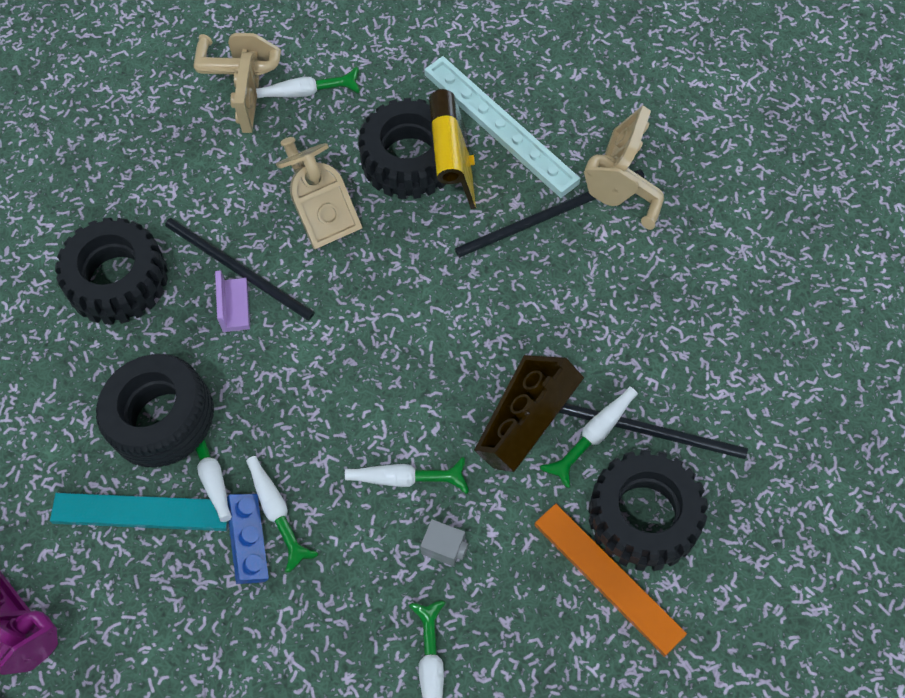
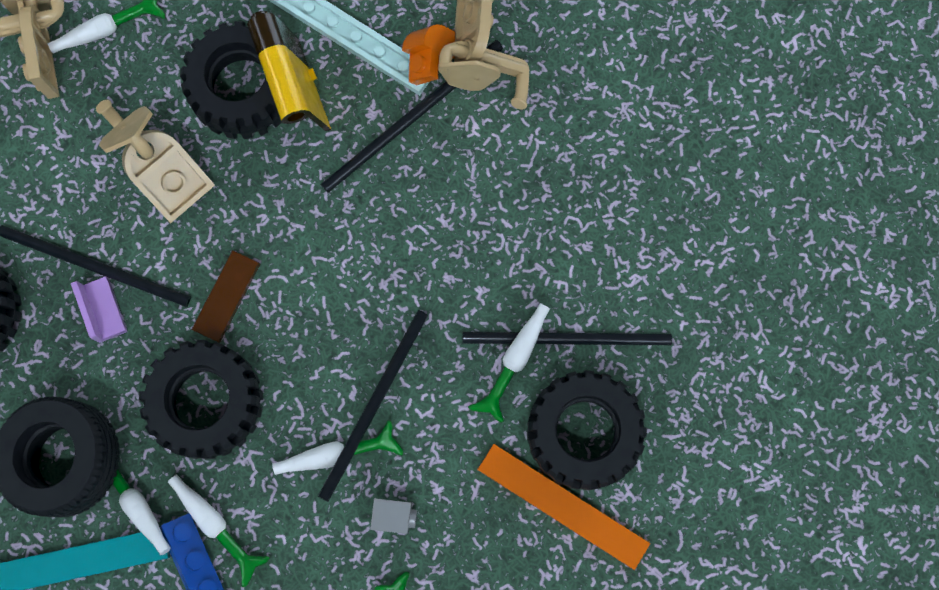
camera: 15 degrees left, 15 degrees up
(291, 363) = (165, 383): none -> black tyre
(345, 319) = (226, 296): none -> reddish brown tile
(461, 431) = (372, 406): none -> black piece
(527, 409) = (441, 354): dark brown wedge -> none
(574, 160) = (424, 52): none -> orange brick

